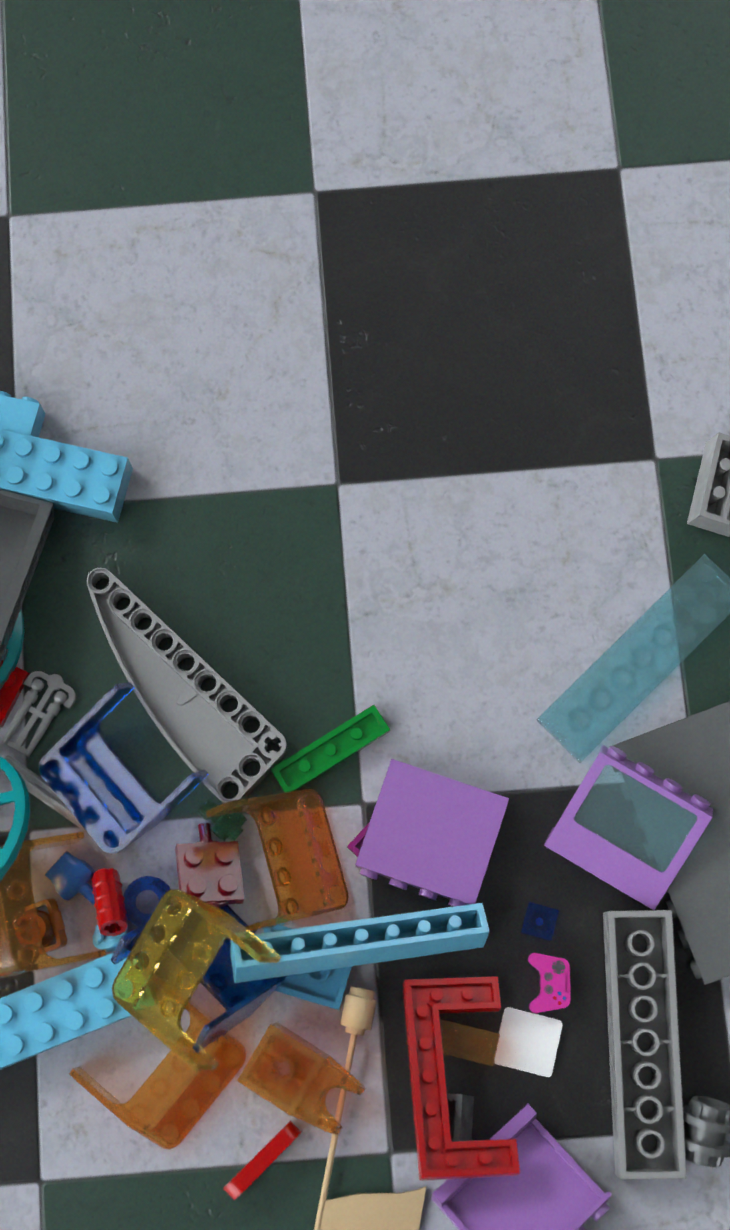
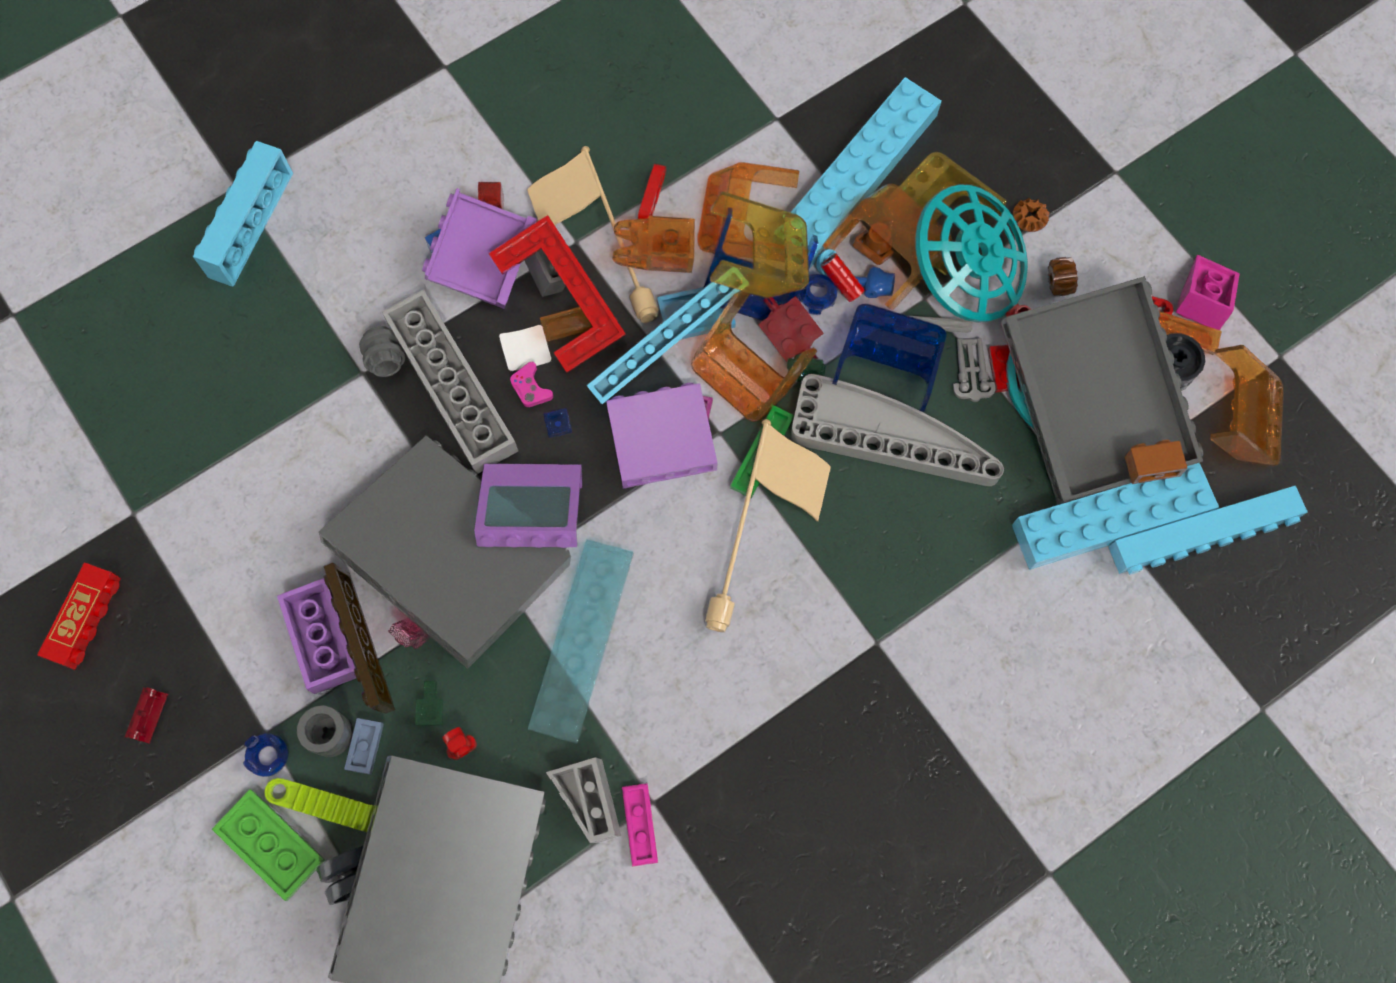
camera: 145 degrees right, 5 degrees down
(316, 705) = (788, 473): none -> tan flag
(680, 444) = (640, 825): none -> dark pink tile

